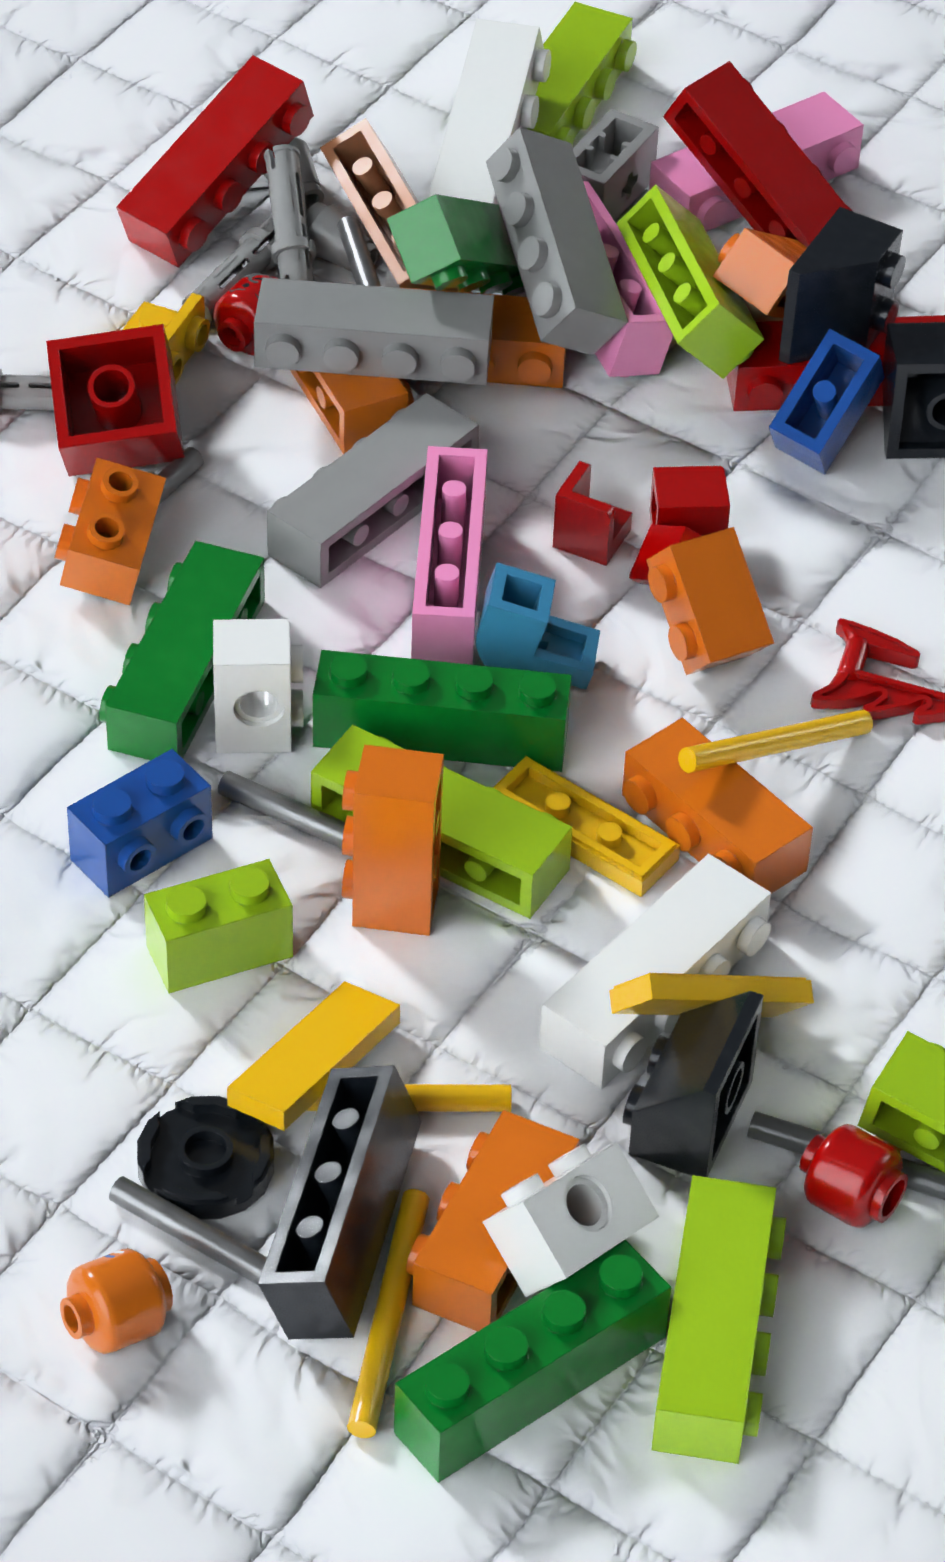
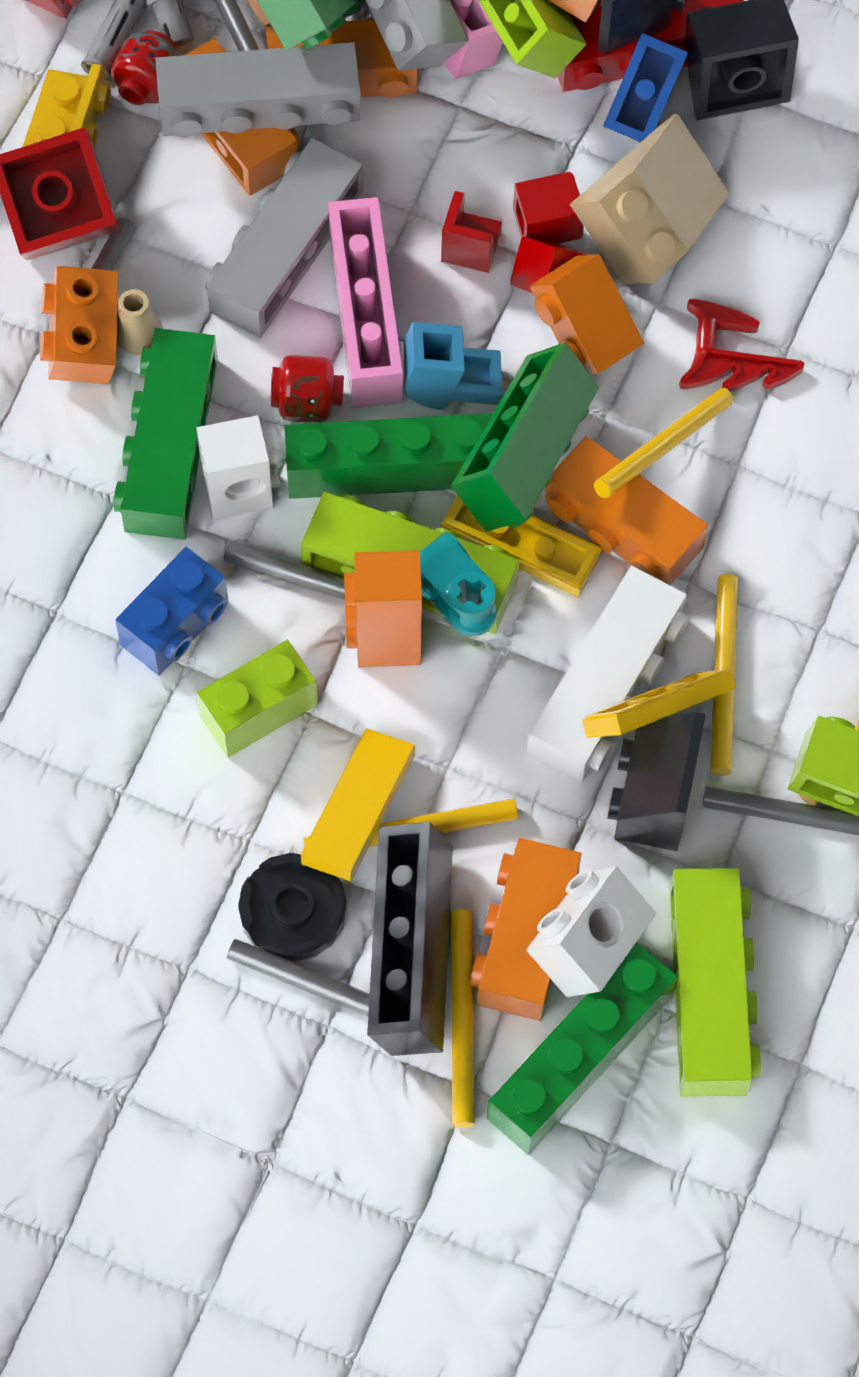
camera: 10 degrees left, 20 degrees up
(116, 1300) = (256, 1054): orange head -> none
(173, 533) = (135, 322): none -> tan cone
(359, 624) = (305, 388): none -> red head
(487, 832) = (457, 586): none -> teal piece
(607, 704) = (525, 438): none -> green brick
(799, 1021) = (724, 659): none -> yellow bar
(811, 510) = (652, 204): none -> tan slope
(853, 1176) = (792, 838): red head -> none

